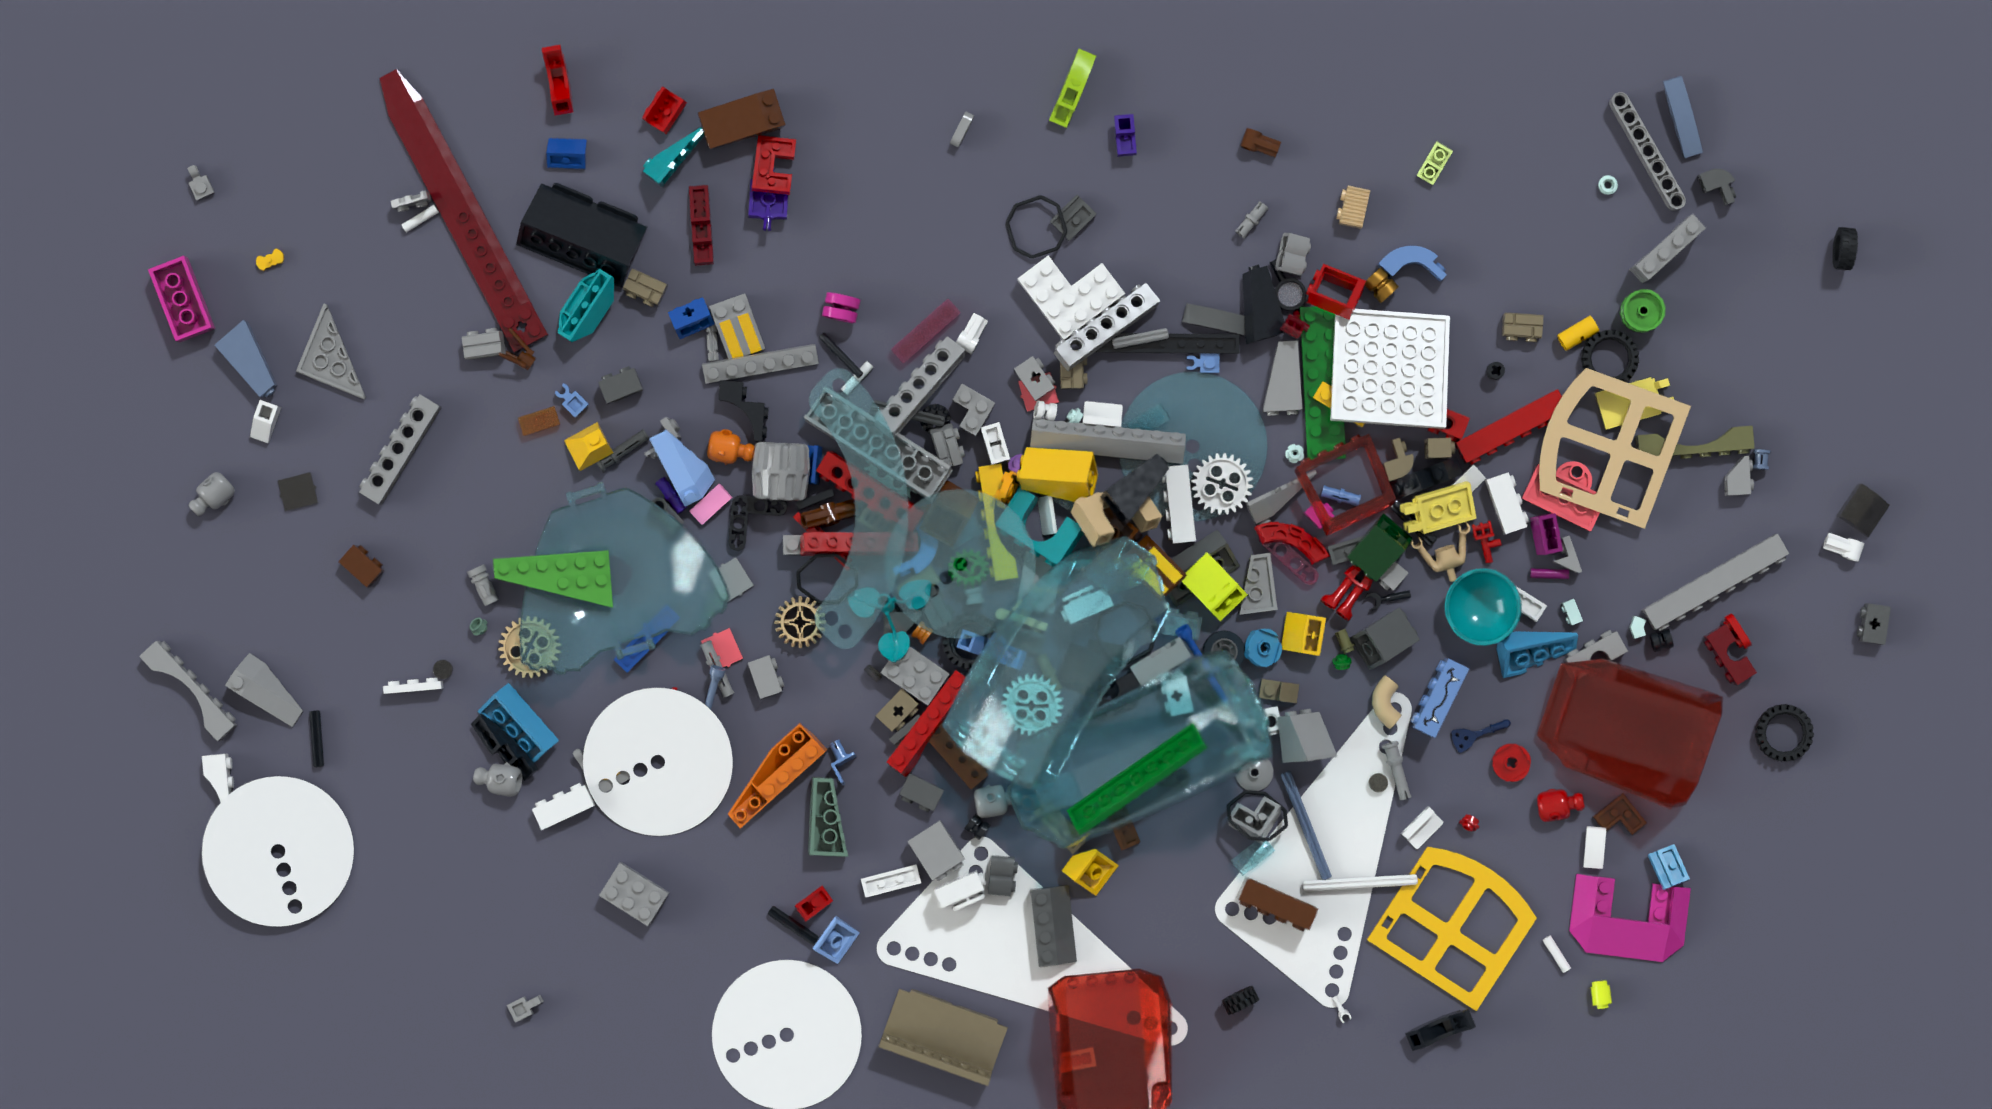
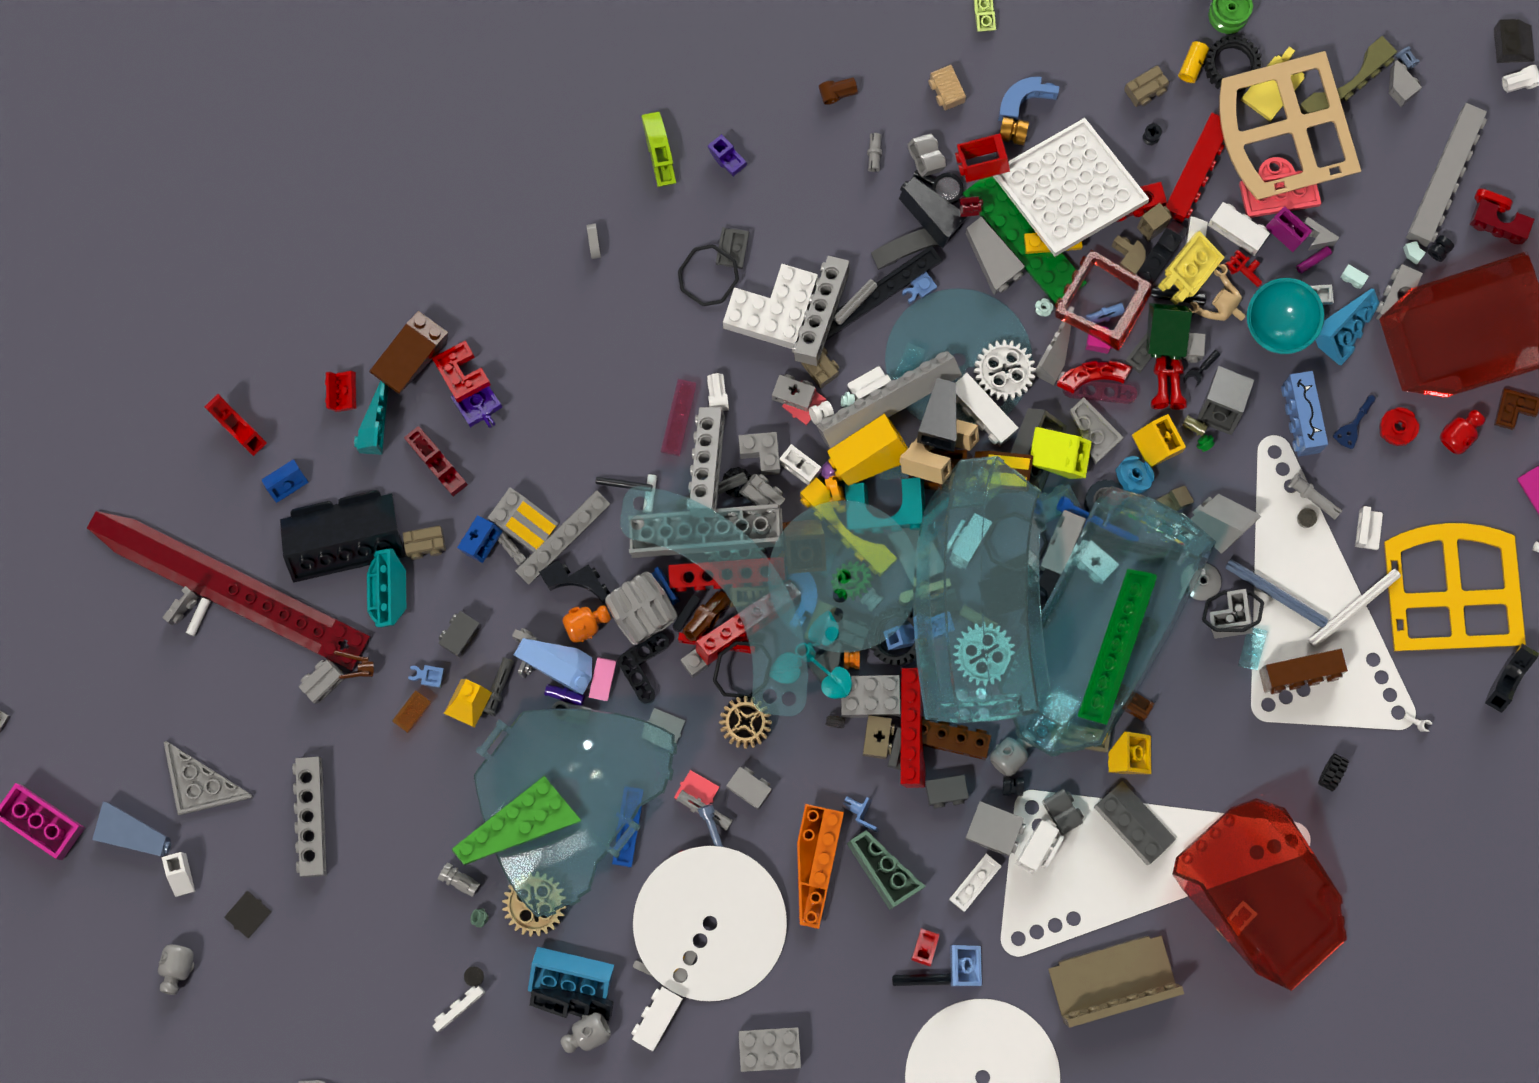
camera: 35 degrees left, 10 degrees down
(275, 258) = (94, 738): yellow piece -> none
(361, 565) = (344, 937): reddish brown brick -> none
(841, 307) = (596, 445): dark pink wheel -> none
(1047, 515) = (884, 494): white slope -> none
(1382, 702) = (1261, 451): tan cylinder -> none
(1469, 823) = (1404, 497): red plate -> none
(1594, 847) = (1516, 445): white slope -> none

